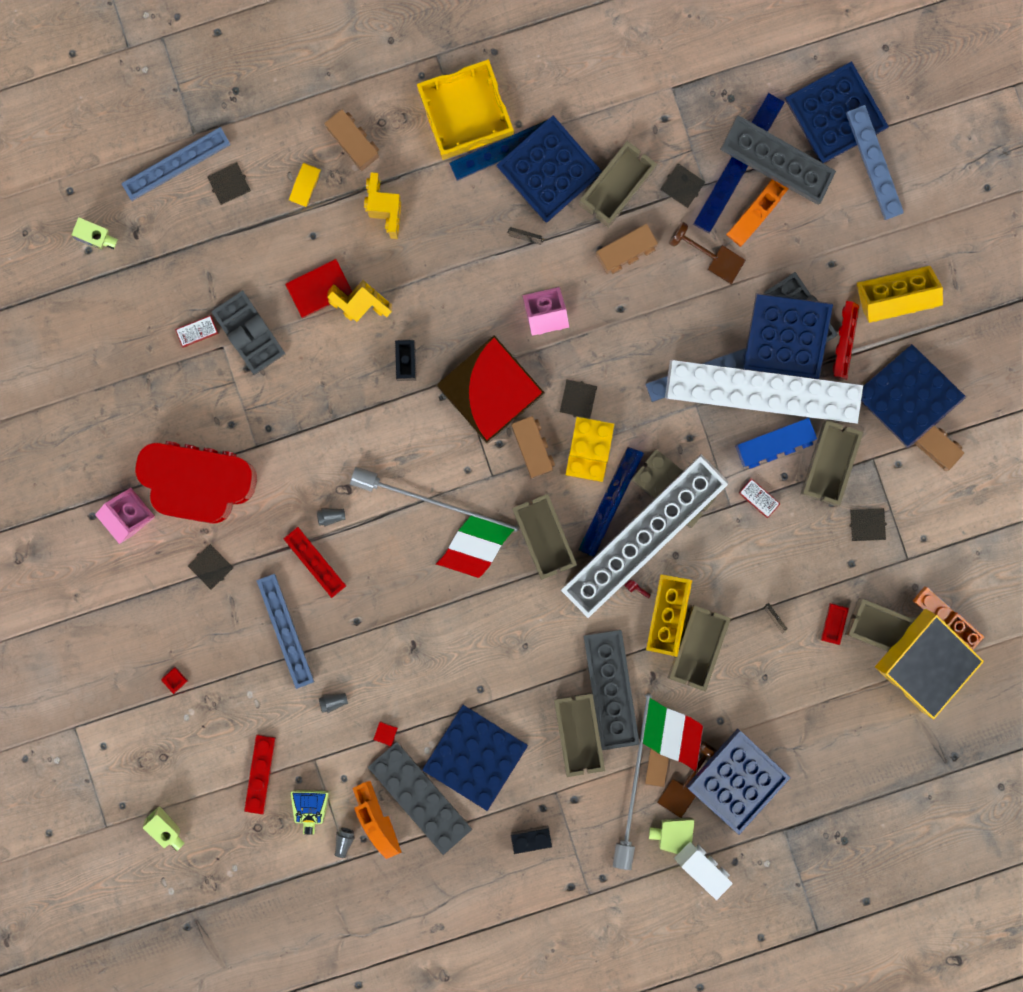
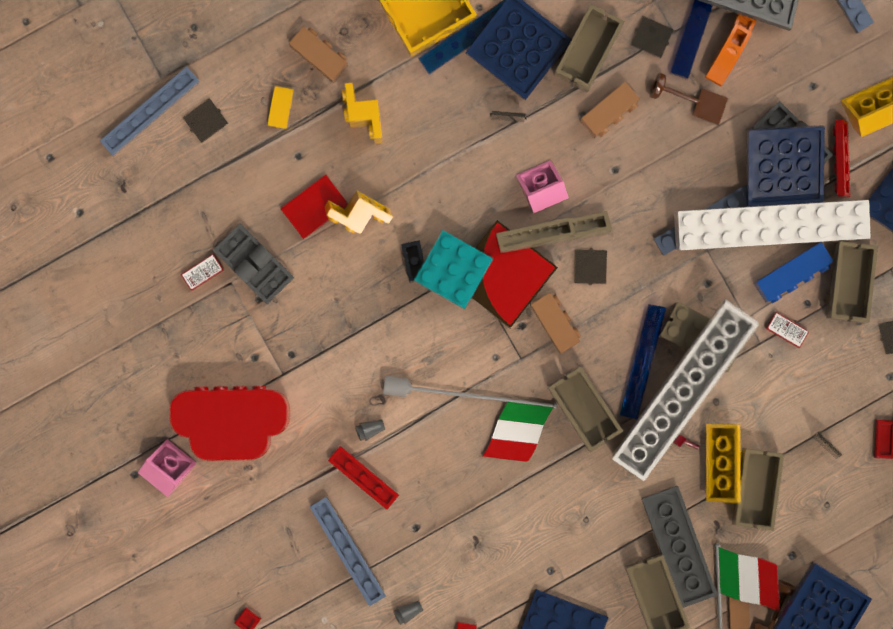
camera: 15 degrees left, 0 degrees up
(86, 230) = (73, 196): yellowish green torso -> none
(210, 566) = (261, 501): clear smoke piece -> none
(441, 375) = (453, 269): none -> teal plate
(548, 357) = (554, 232): none -> dark tan slope
(589, 449) = (612, 314): yellow bracket -> none

